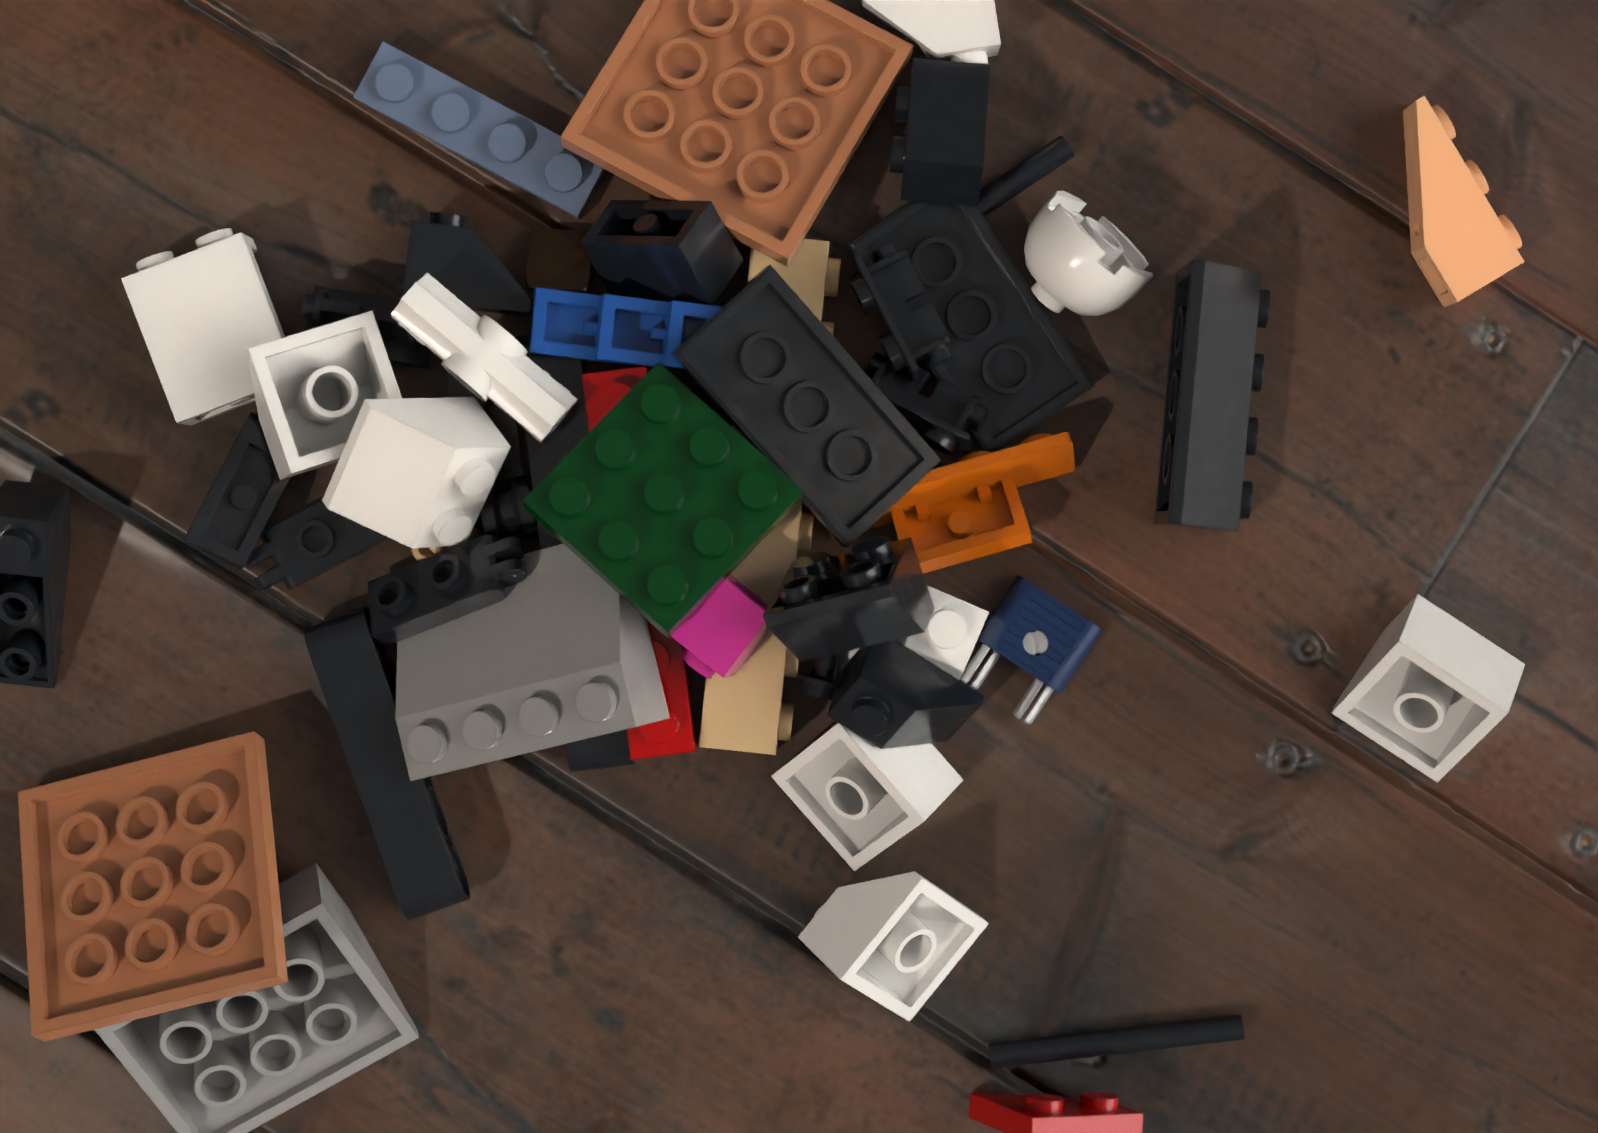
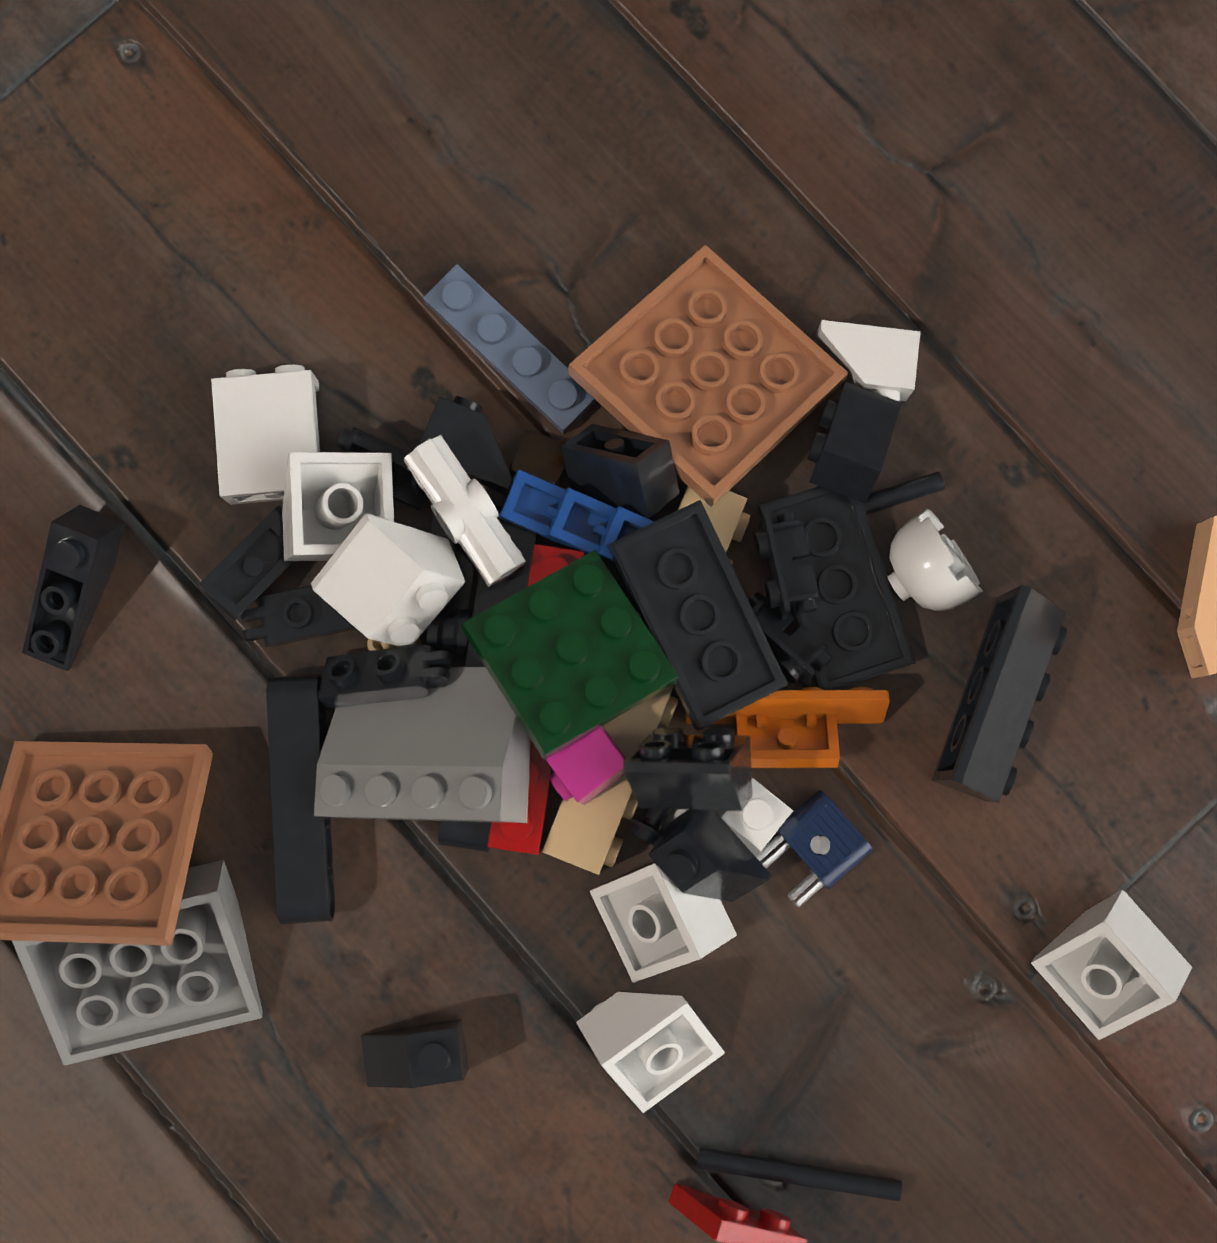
camera: 15 degrees right, 5 degrees down
(617, 1029) = (416, 1055): none -> black slope

